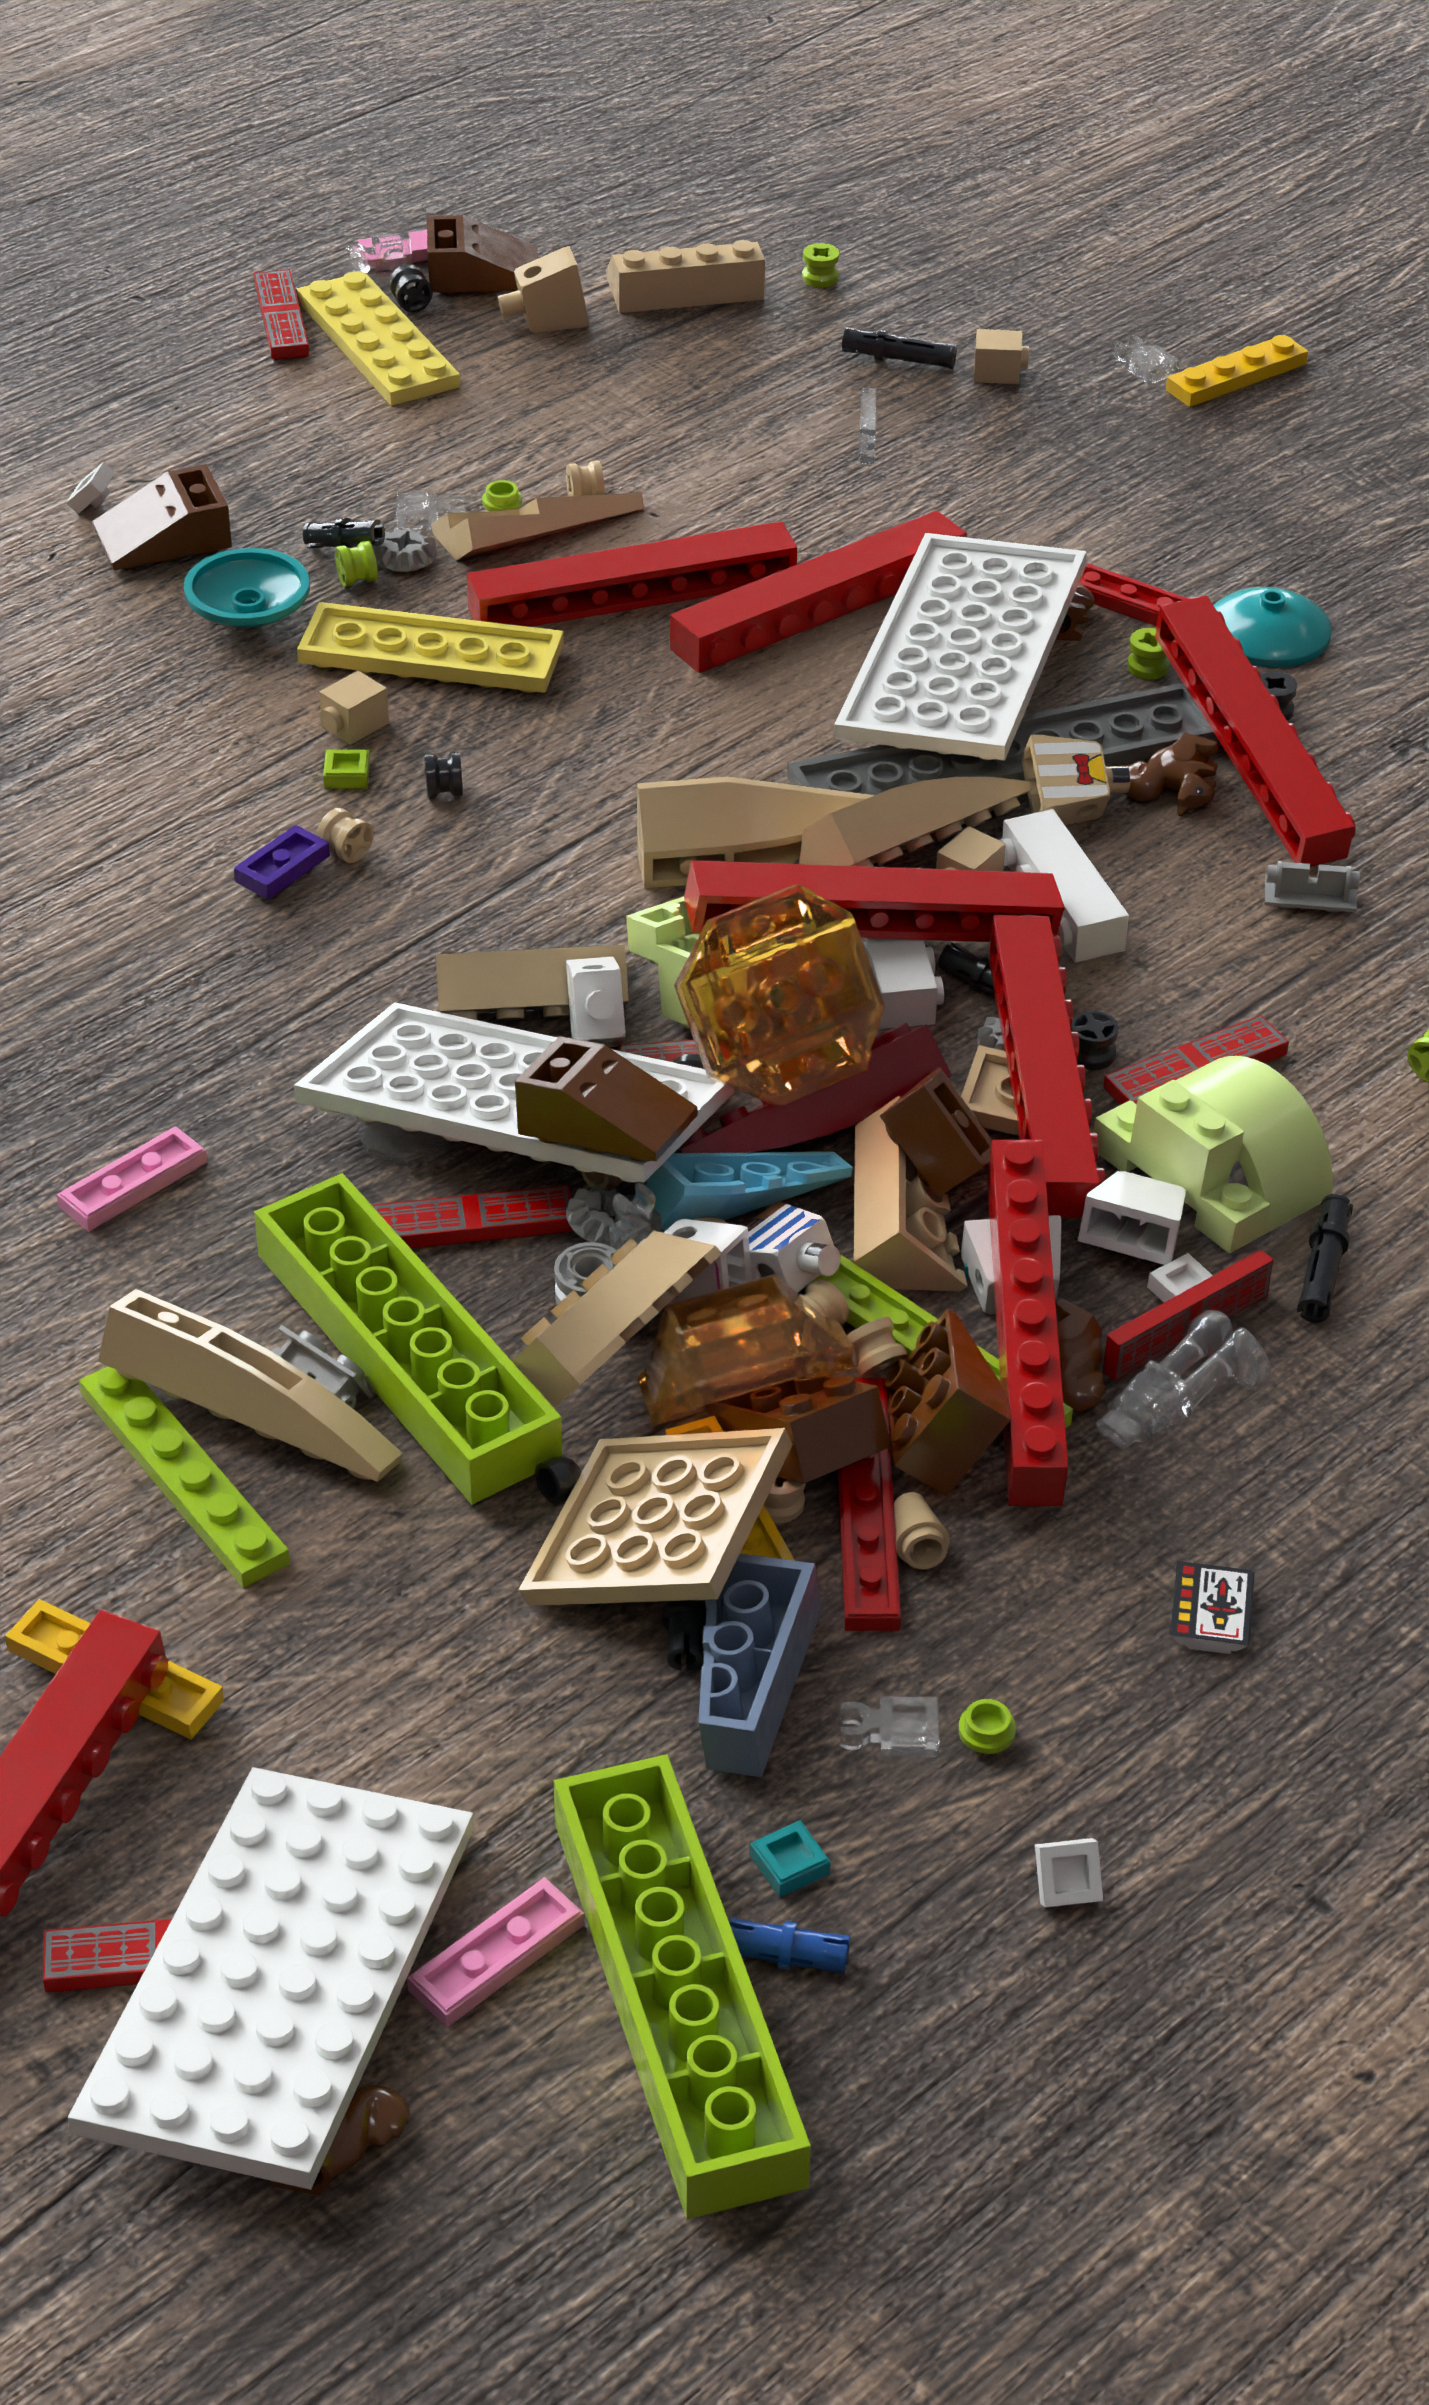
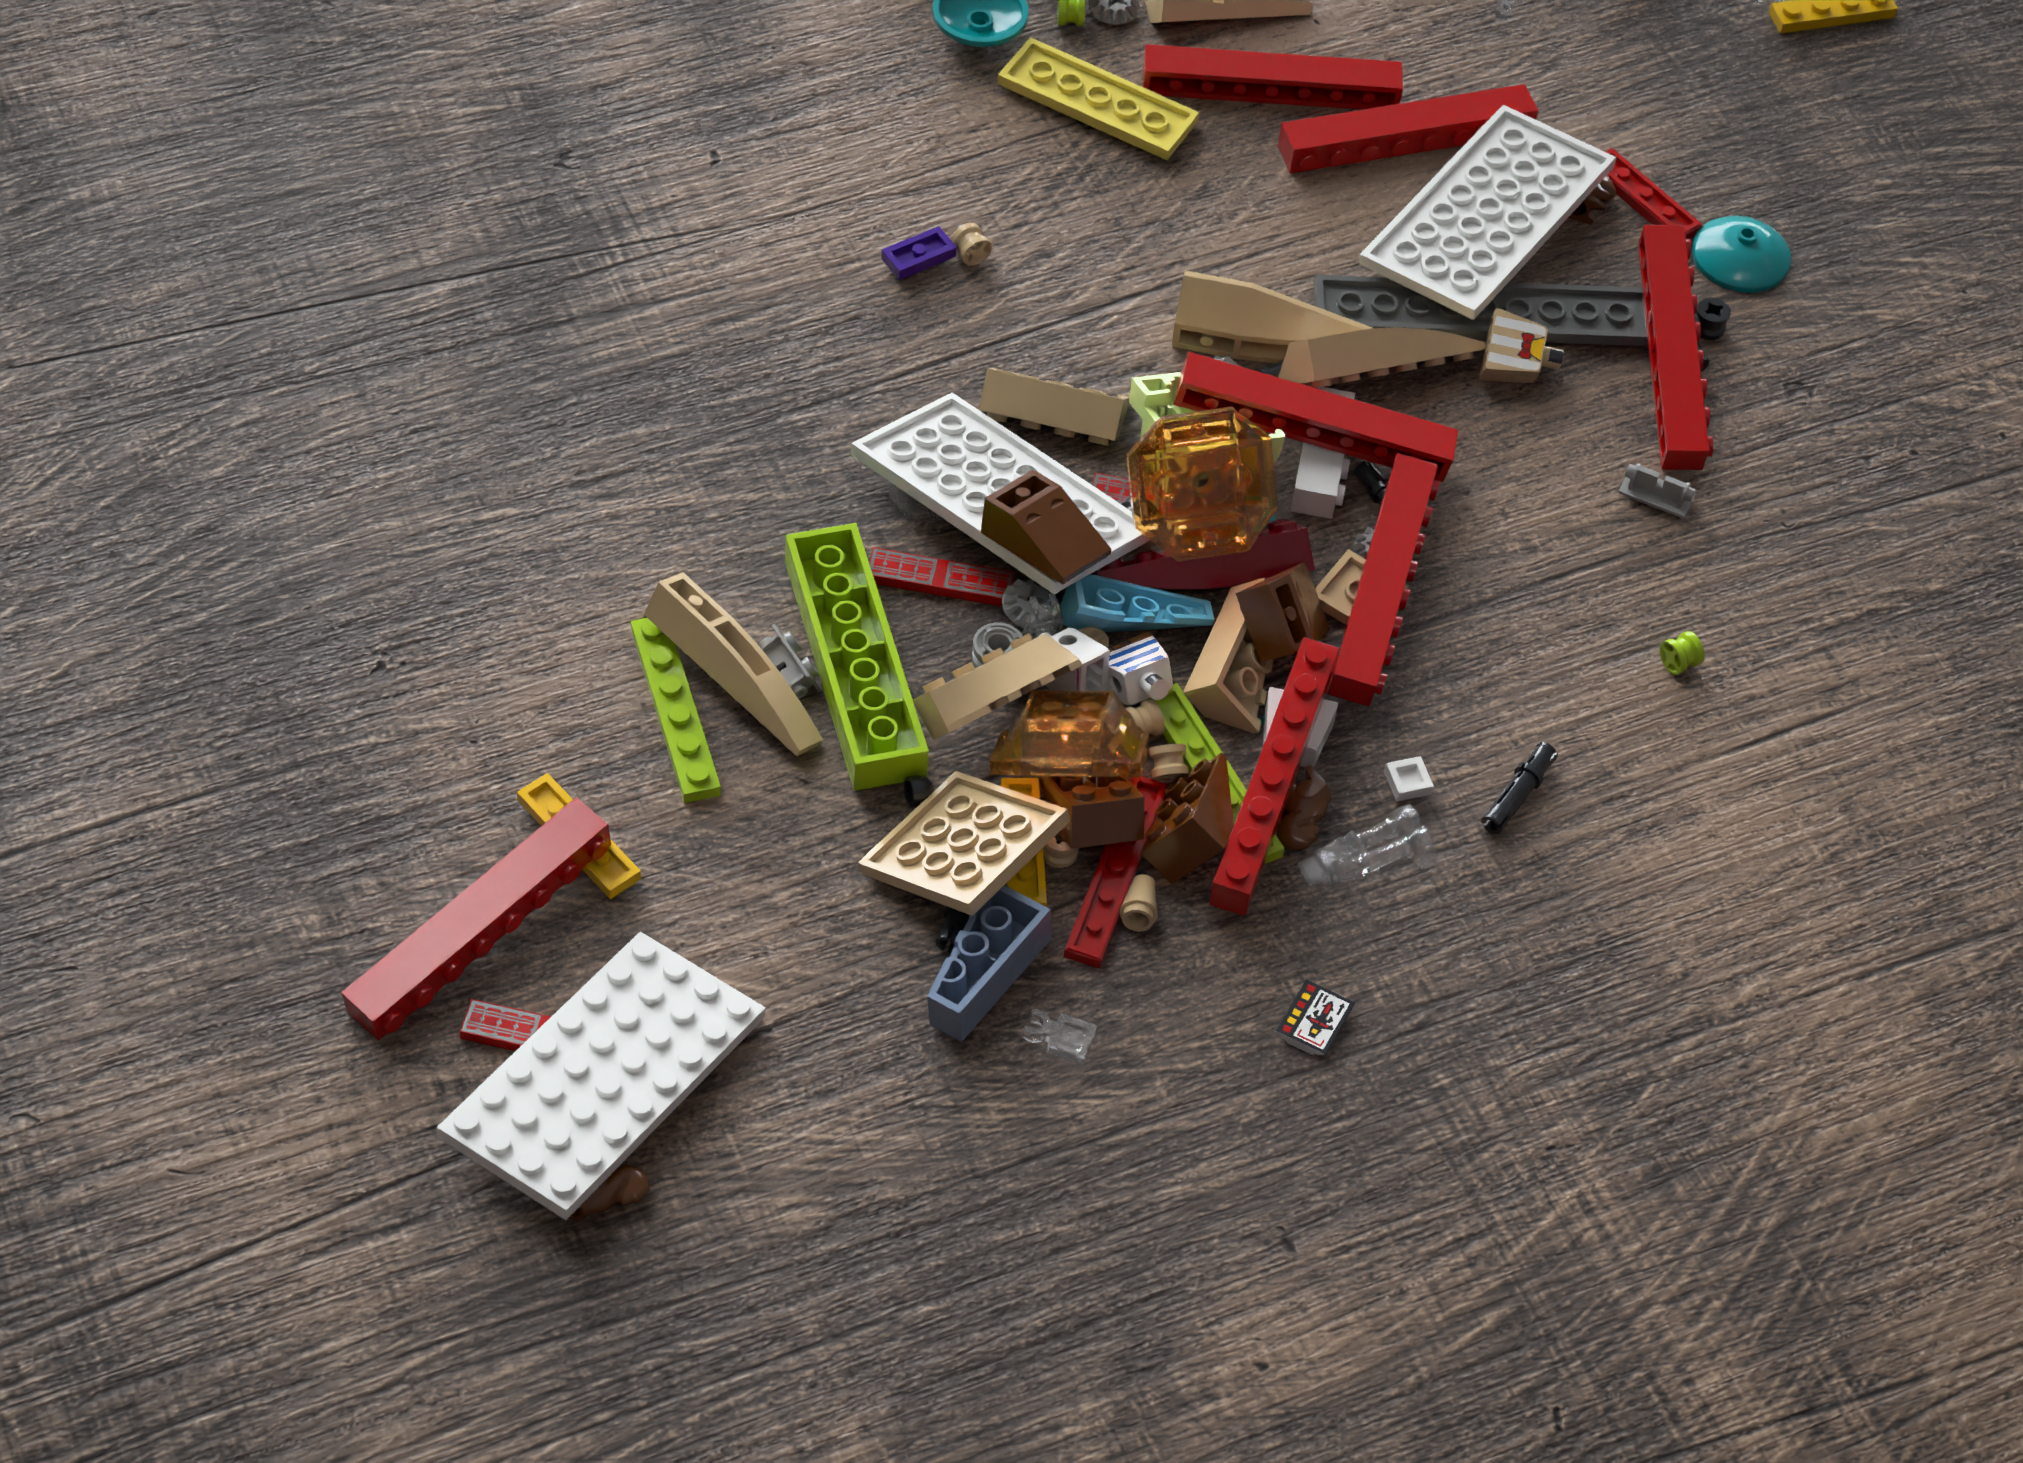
camera: 15 degrees right, 10 degrees up
(131, 1178) = (722, 477): bright pink tile -> none
(346, 769) = (997, 186): lime tile -> none
(354, 707) = (1019, 136): tan brick -> none
(443, 774) = (1061, 212): black wheel -> none
(495, 1952) = (745, 1103): bright pink tile -> none
(596, 1000) = (1086, 436): white torso -> none
(681, 1988) = (845, 1163): lime brick -> none
(789, 1858) = (957, 1102): teal tile -> none
(791, 1945) = (929, 1160): blue pin -> none
(972, 852) = (1413, 395): tan brick -> none
(987, 1727) = (1123, 1055): lime plate -> none
(1068, 1872) = (1129, 1171): white plate -> none
(1093, 917) = (1477, 456): white brick -> none
(1096, 1039) = (1442, 561): black wheel -> none
(1134, 1216) = (1396, 716): white torso -> none
(1148, 658) = (1628, 255): lime wheel -> none
(1167, 1324) = (1380, 805): red tile -> none
(1177, 768) = (1606, 360): reddish brown animal -> none
(1209, 1121) = (1487, 662): yellowish green piece -> none
(1249, 1039) = (1503, 608): red tile -> none

